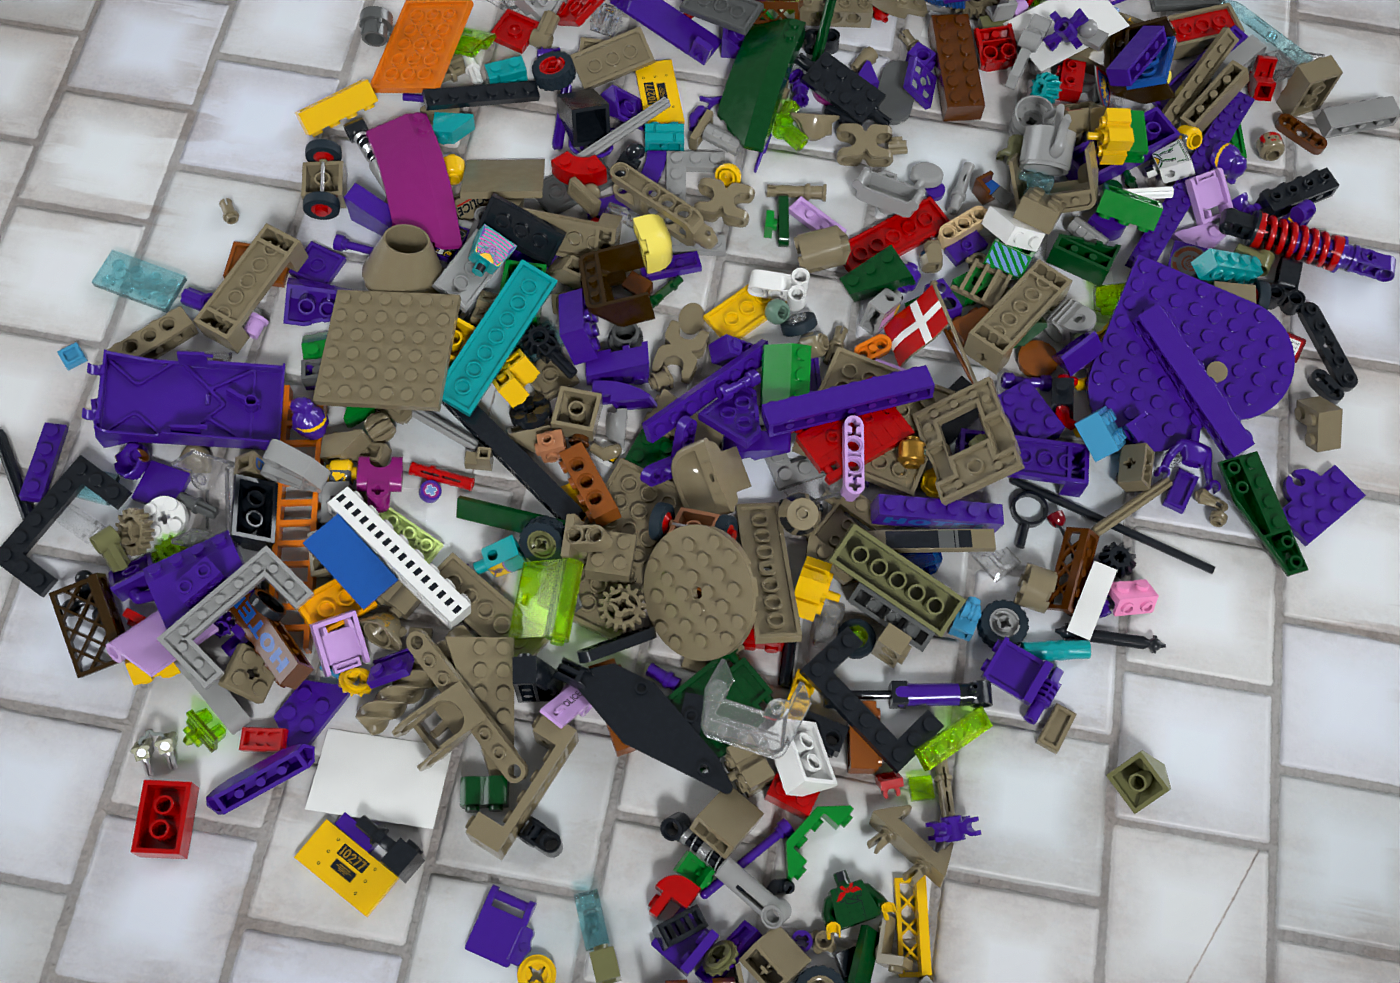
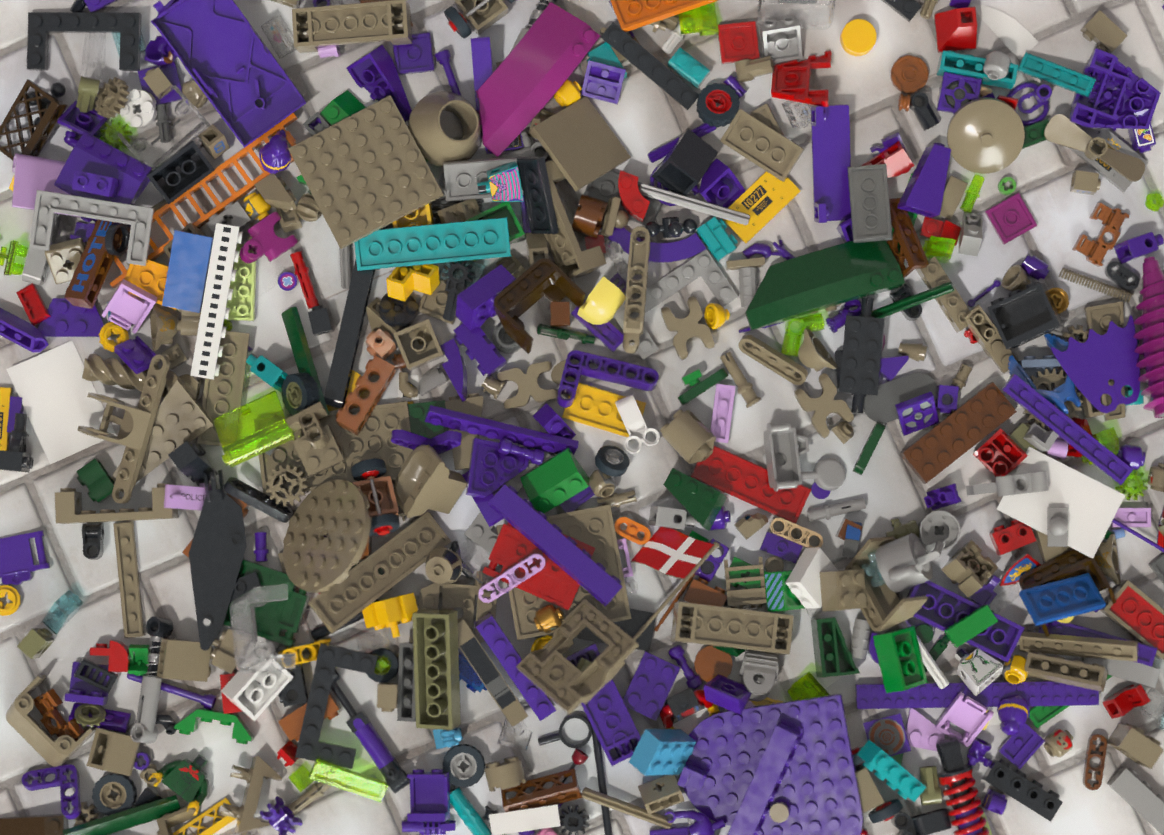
camera: 60 degrees right, 20 degrees up
(132, 617) = (53, 150): red plate -> none
(157, 481) = (158, 82): none -> dark tan brick
(293, 467) = (225, 179): light grey connector -> none
(465, 135) = (603, 81): none -> dark purple slope
(479, 460) = (335, 298): dark tan piece -> none
(490, 485) = (320, 321): none -> black brick
(570, 204) = (589, 216): none -> reddish brown brick
(605, 830) = (129, 579): none -> dark tan tile
(696, 296) = (602, 373): none -> dark purple beam
(777, 311) = (610, 437): sand green piece -> none
(798, 157) = (773, 359): none -> dark tan plate
(924, 135) = (869, 448): none -> dark green beam
(1004, 104) = (942, 497): none -> dark purple hips
(1046, 86) = (984, 522): teal gear -> none
(1065, 29) = (1043, 514): dark purple pin -> none
(1113, 136) = (951, 609): yellow brick -> none
(1136, 56) = (1056, 584): dark purple brick -> none
(1258, 175) = (1021, 746): none -> dark purple plate

